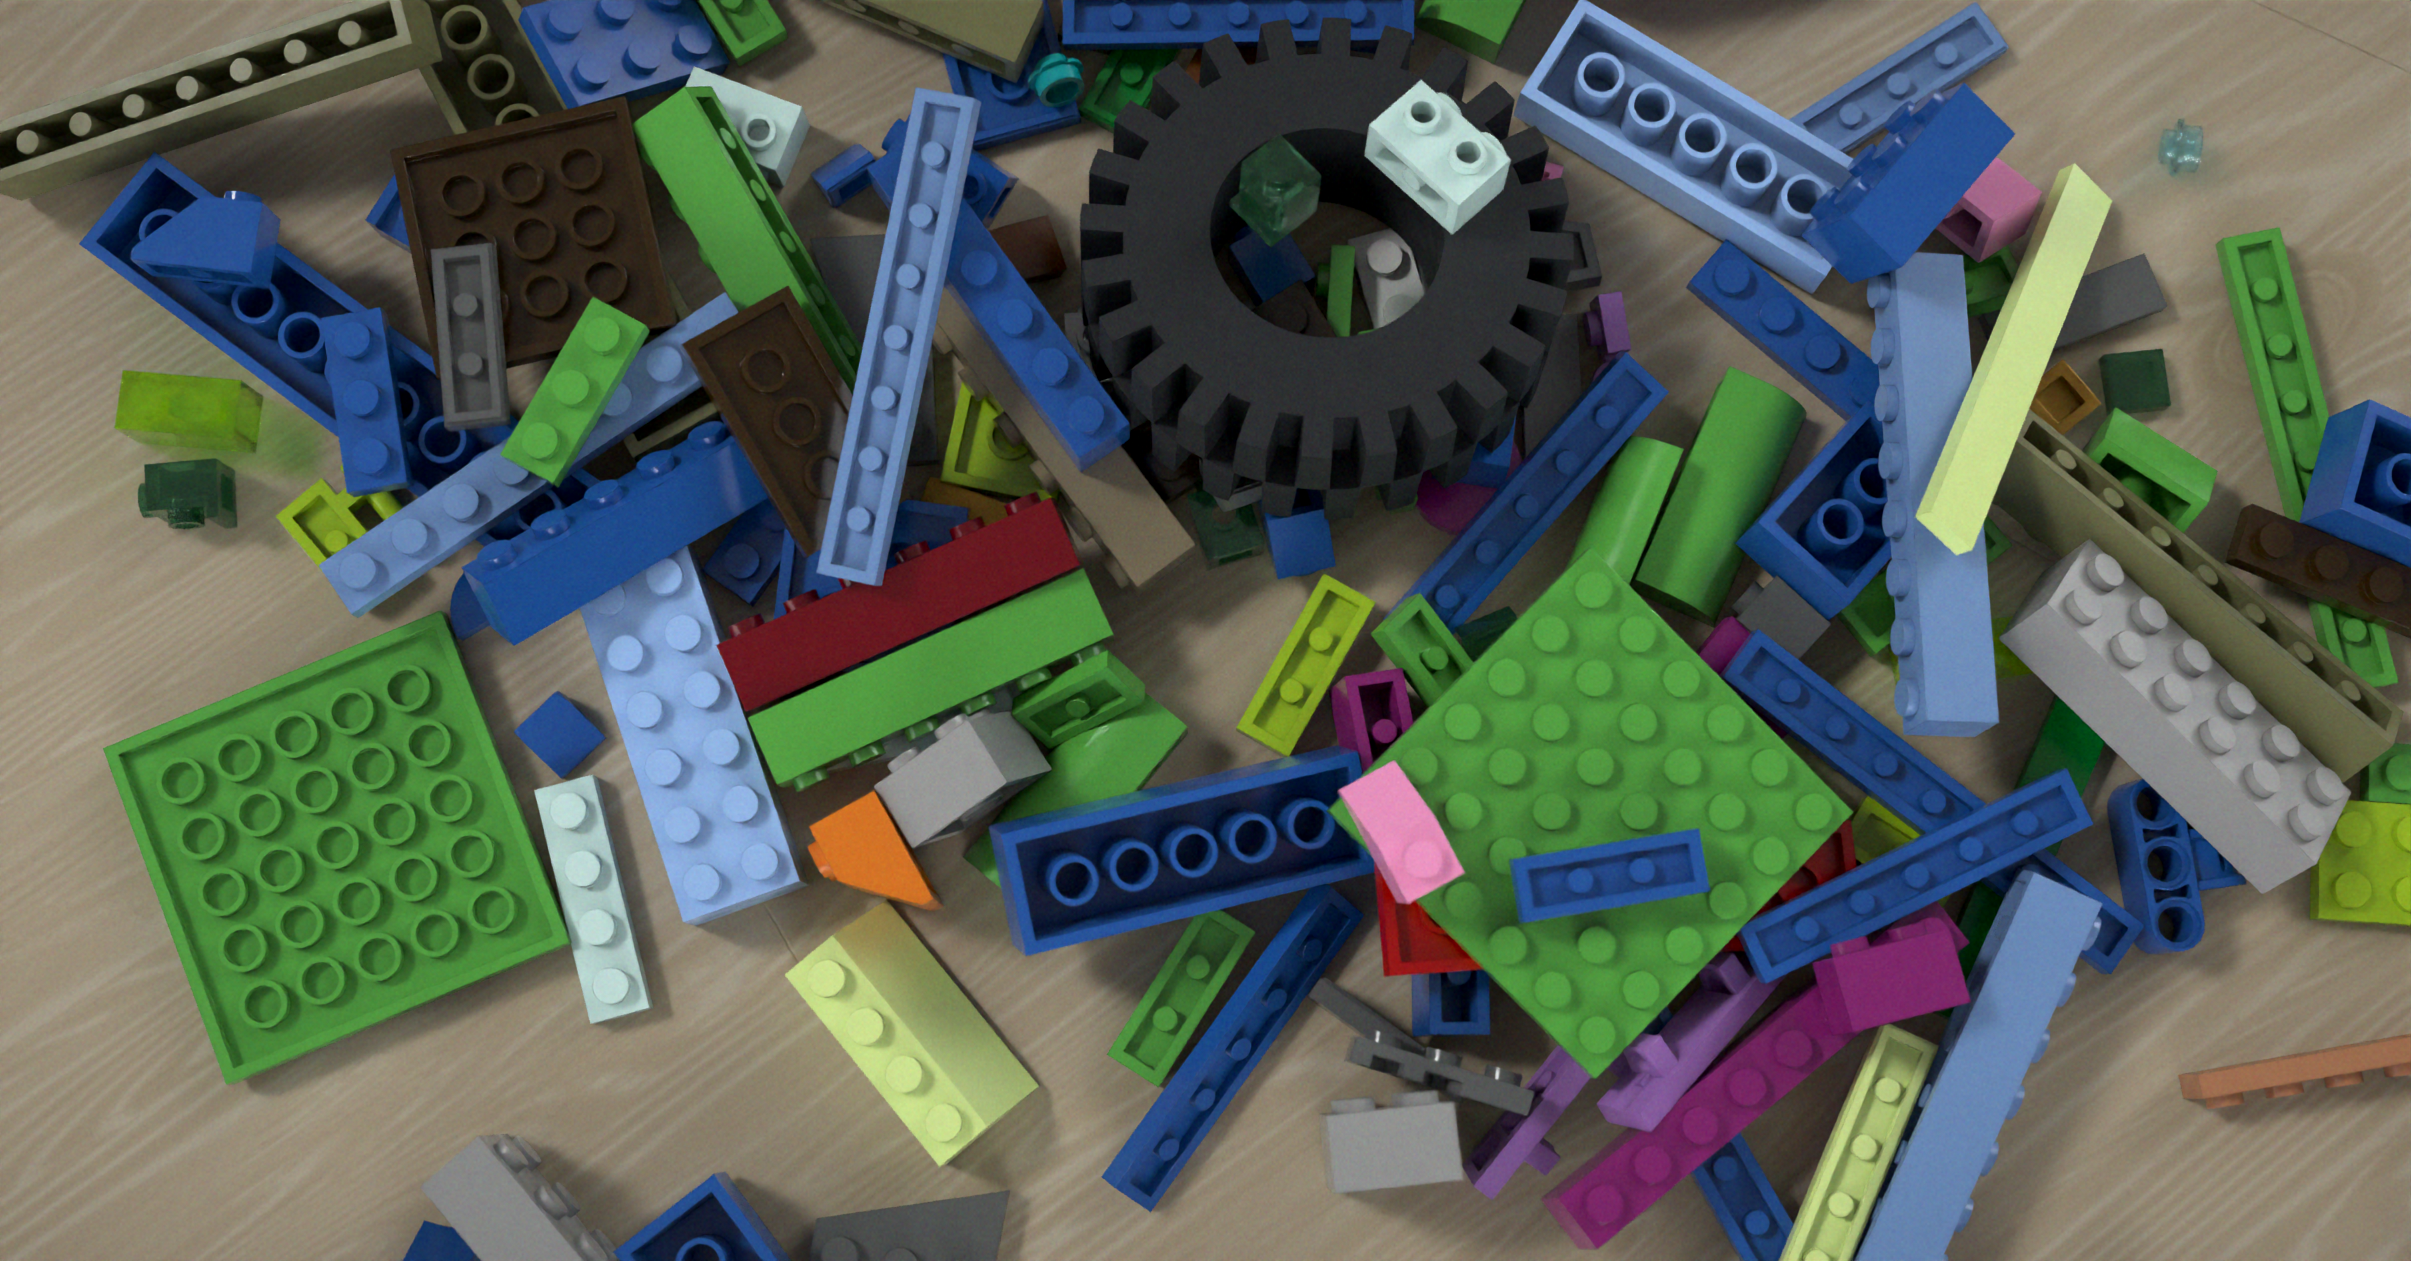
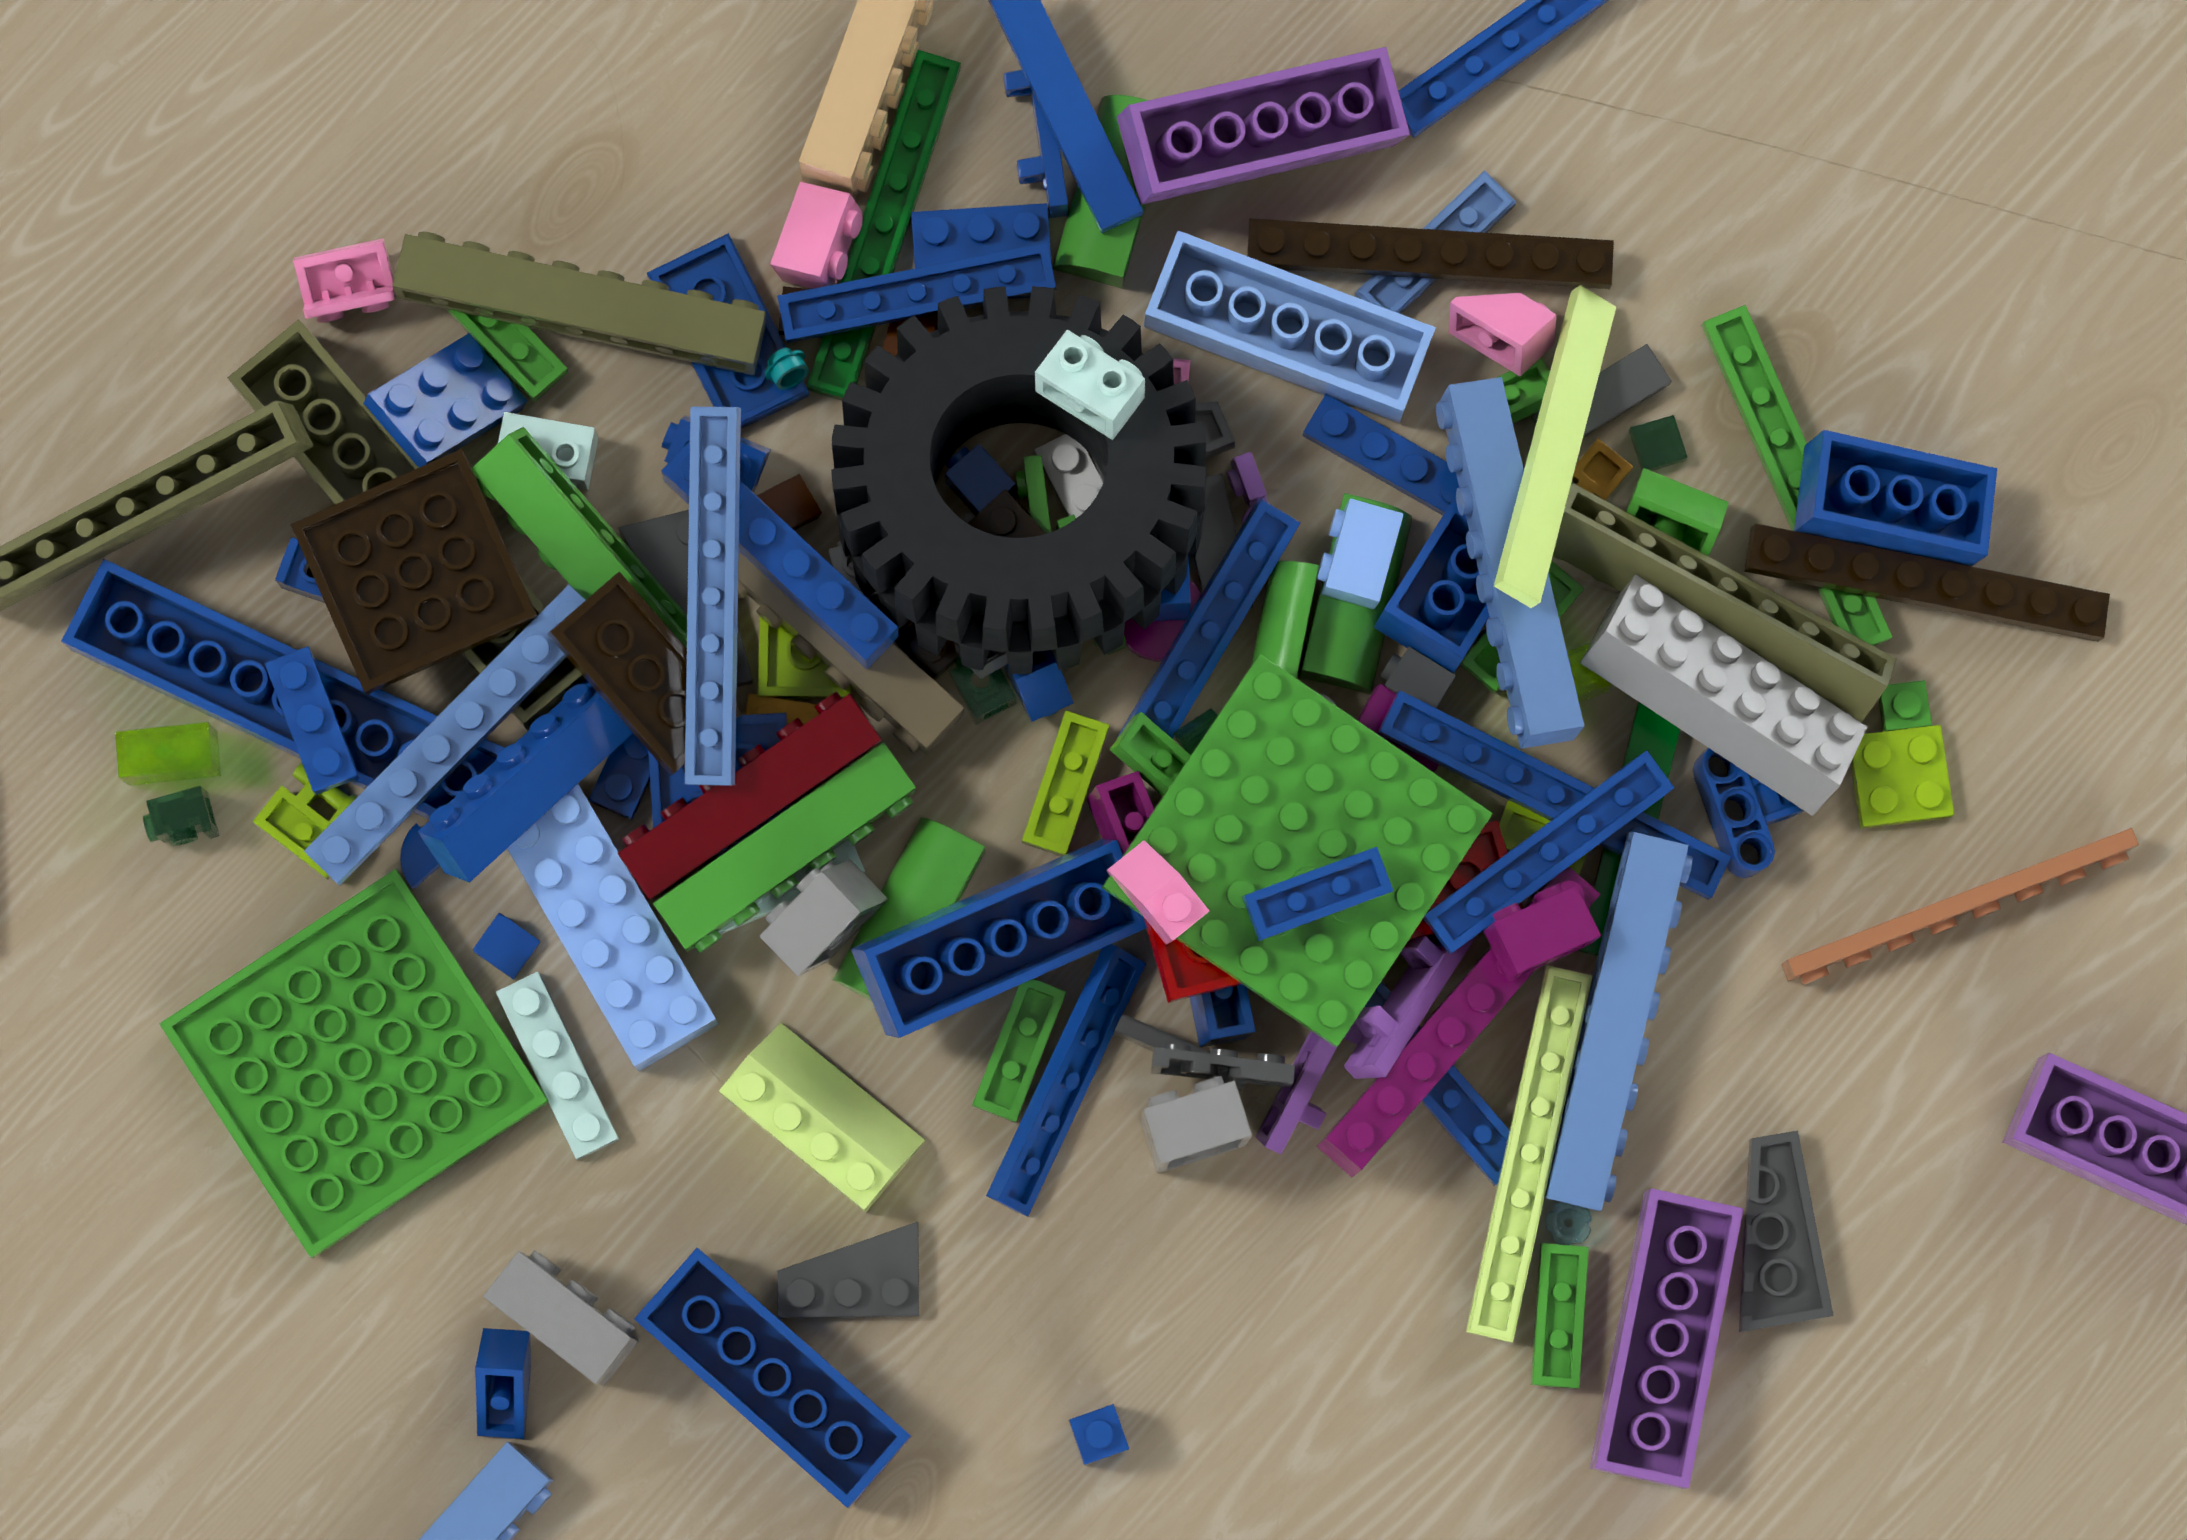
camera: 15 degrees left, 0 degrees up
(214, 242) = (171, 621): blue slope -> none
(470, 337) = (384, 656): dark grey tile -> none
(575, 392) = (473, 683): bright green plate -> none
(844, 175) = (635, 471): blue slope -> none
(871, 855) = (766, 989): orange slope -> none
(1078, 699) = (898, 842): bright green plate -> none
(1276, 190) = (975, 434): clear green brick -> none
(1739, 445) = (1360, 553): none -> light blue brick
(1880, 84) = (1432, 253): none -> dark brown plate
(1906, 183) = (1446, 332): blue brick -> none
(2181, 147) = (1661, 255): clear light blue plate -> none

